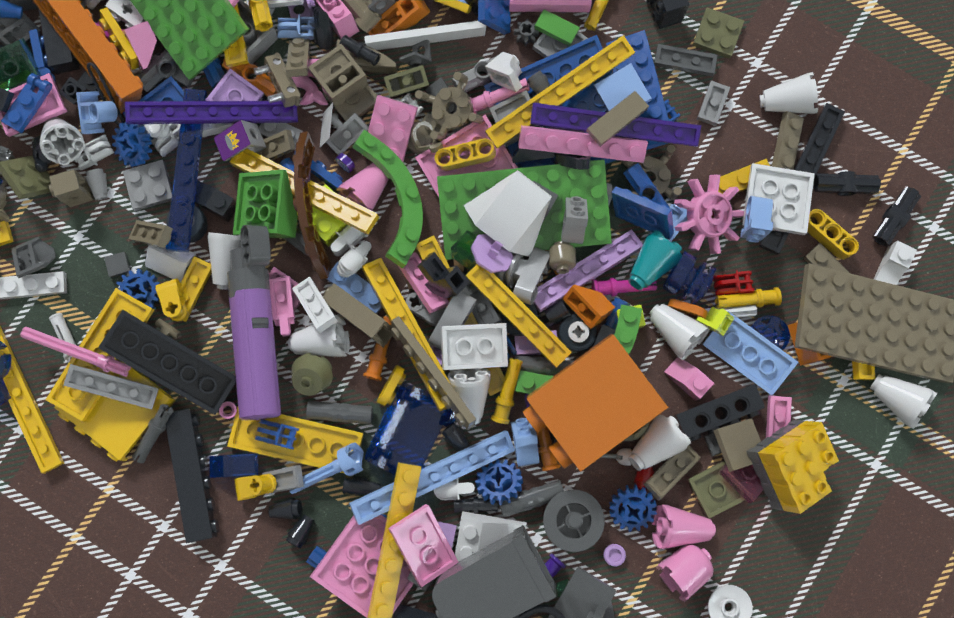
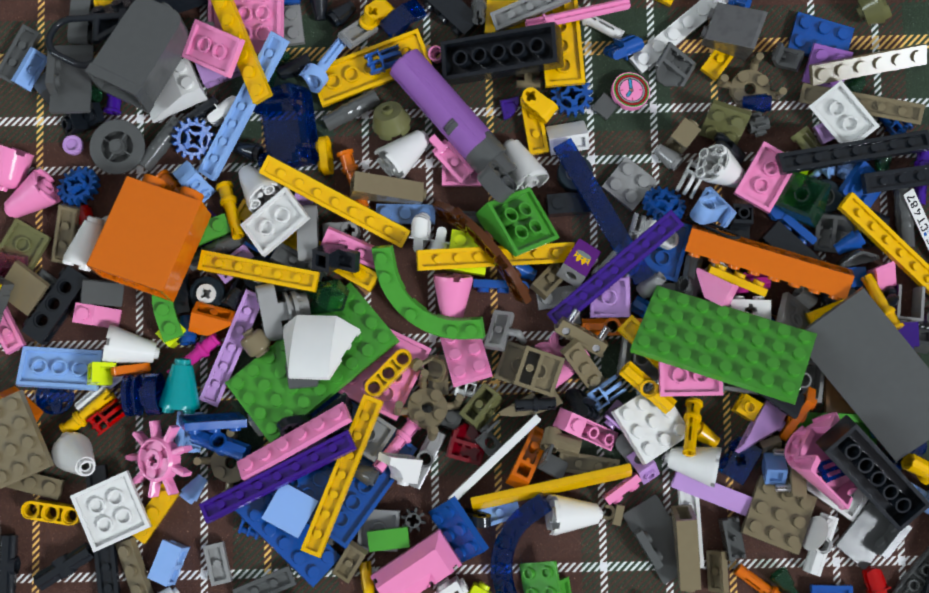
camera: 150 degrees right, 5 degrees up
(27, 103) = (765, 174): blue plate -> none
(61, 302) = (624, 47): none -> blue arm
(85, 262) = (630, 91): none -> tile
(151, 234) = (592, 142): dark tan plate -> none
(199, 84) = (648, 286): none -> light grey cone
(200, 321) = (509, 107): none -> dark purple tile
(314, 305) = (423, 172): white plate -> none
(326, 125) = (520, 325): white sticker -> none
(337, 524) = (293, 25): none -> light grey plate
(345, 162) = (485, 306): dark purple tile -> none
(436, 379) = (282, 172): dark tan plate -> none
(443, 61) = (463, 446): none -> dark red slope
(491, 254) = (310, 301): lavender piece -> none
(574, 220) = (261, 376): light grey pin -> none
(600, 571) = (81, 122): none -> black slope
(606, 30) = (350, 561): none -> dark tan plate
(617, 118) = (276, 479): dark tan tile -> none
(673, 393) = (101, 293): none -> dark grey slope
(698, 172) = (193, 489): none -> light blue cone
(755, 130) = (168, 562): none -> light blue hinge
(757, 219) = (115, 478): light blue pin -> none
(781, 263) = (74, 454): none -> white cone

